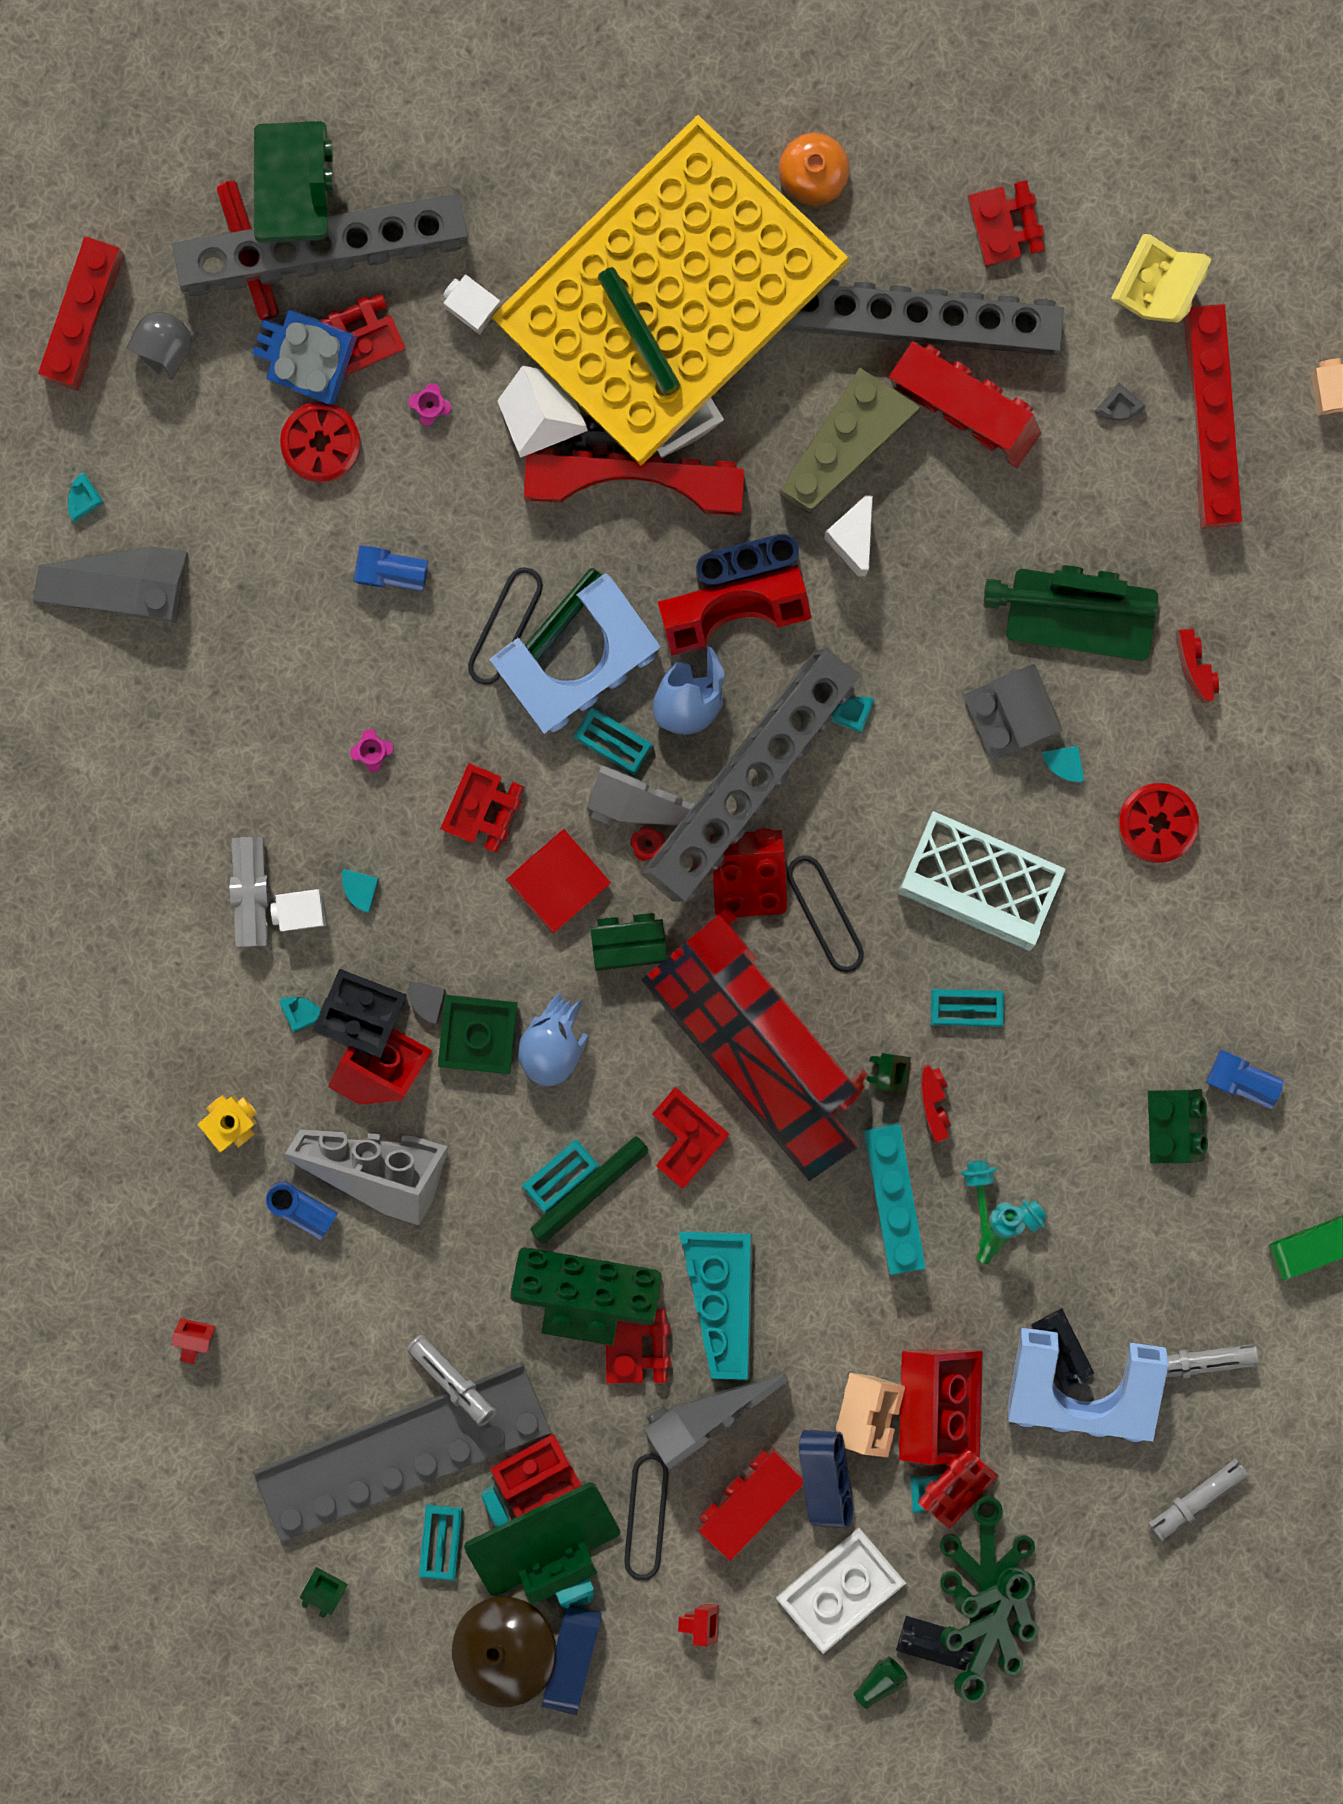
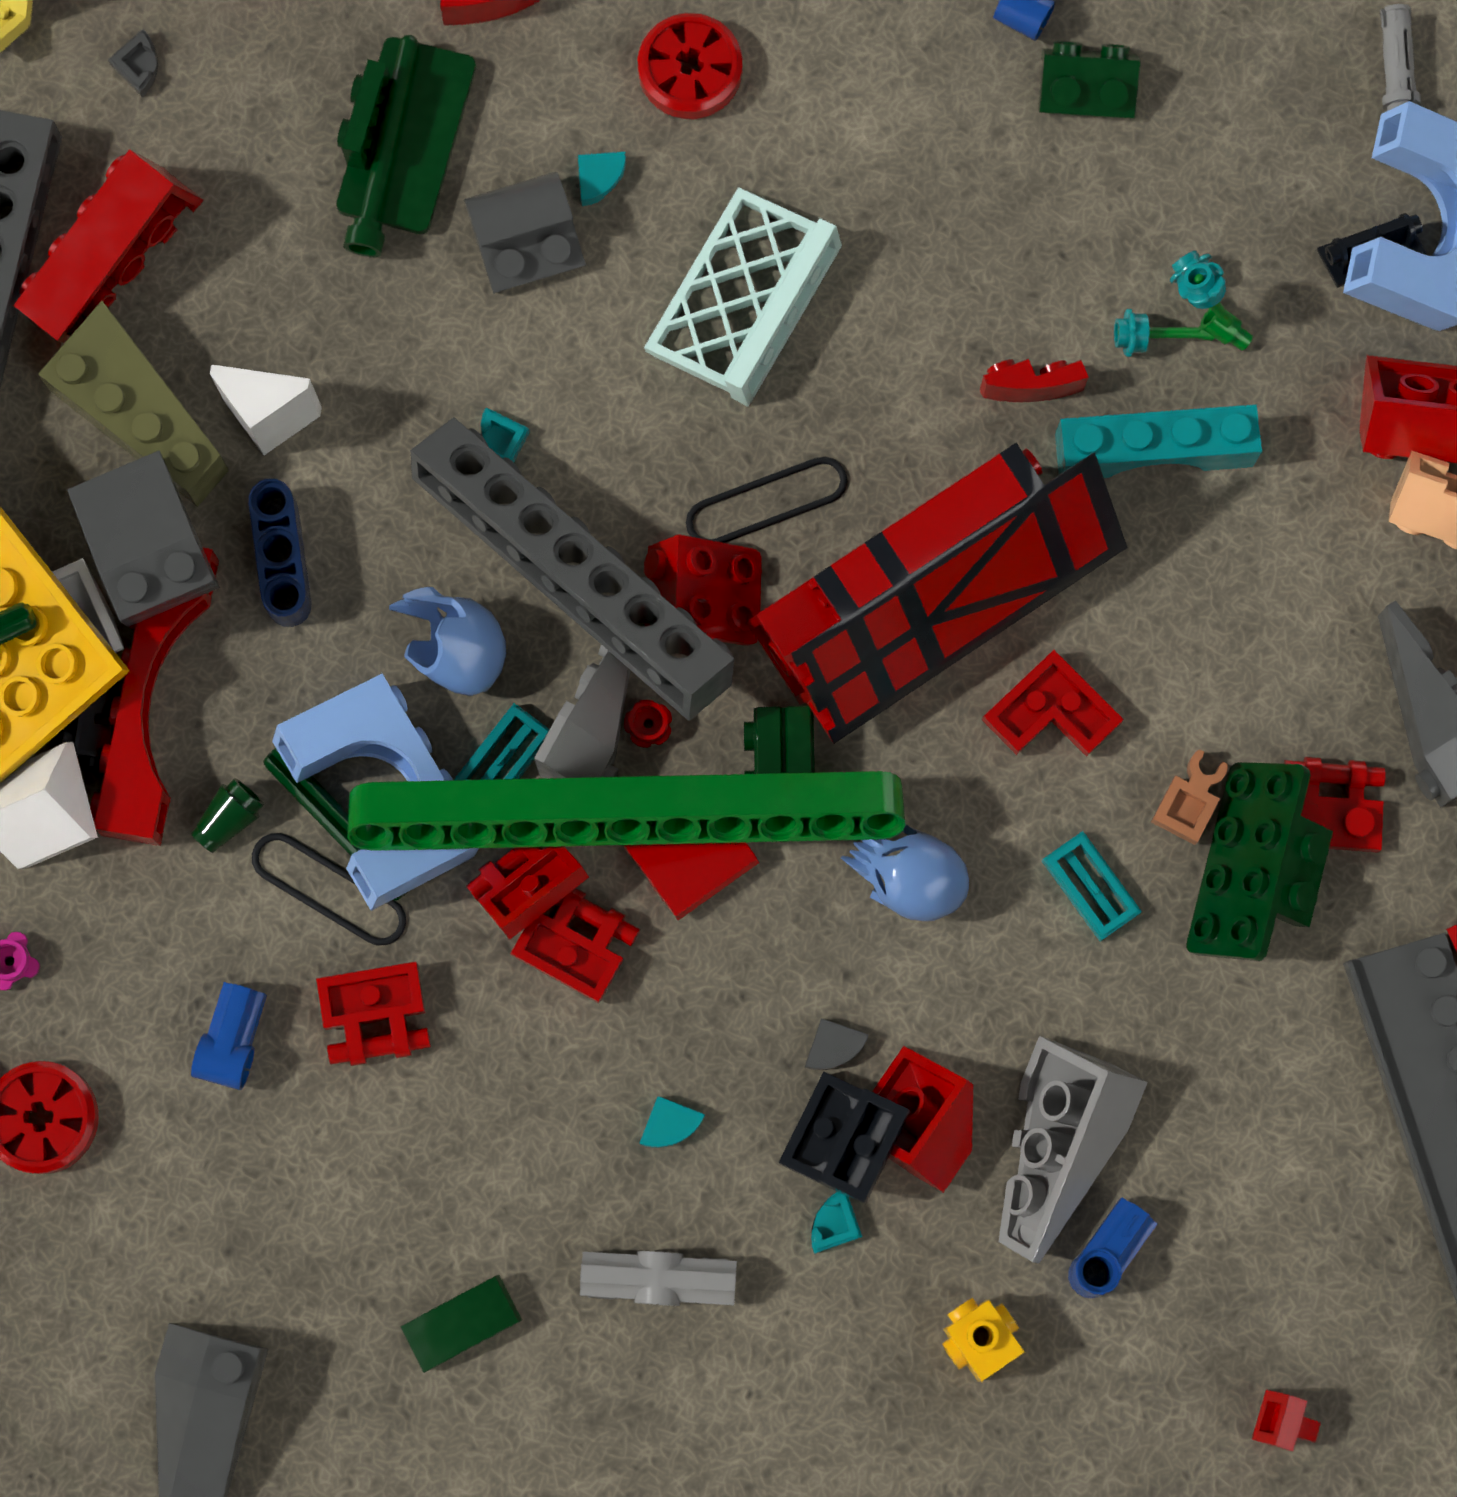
camera: 85 degrees left, 10 degrees down
(82, 498) = (73, 1465): teal tile -> none
(205, 756) = (461, 1323): none -> dark green slope
(299, 910) = (691, 1210): white brick -> none
(368, 740) = (479, 1103): dark pink plate -> none
(427, 664) = (373, 997): none -> red plate
(462, 1391) = (1381, 1046): light grey pin -> none
(477, 1034) = (888, 978): dark green plate -> none
(515, 773) = (525, 885): none -> red plate
(550, 547) = (228, 814): none -> dark green cone
(572, 835) = (625, 810): none -> green beam
(589, 1189) = (1114, 848): dark green axle -> none
(625, 1240) = (1188, 804): none -> nougat plate
(722, 1292) = (1266, 682): teal wing -> none
(739, 461) = (142, 539): none -> dark grey slope
(768, 596) = (332, 520): red arch -> none
(892, 1072) = (987, 430): dark green tile -> none
(998, 1008) = (905, 368): teal tile -> none

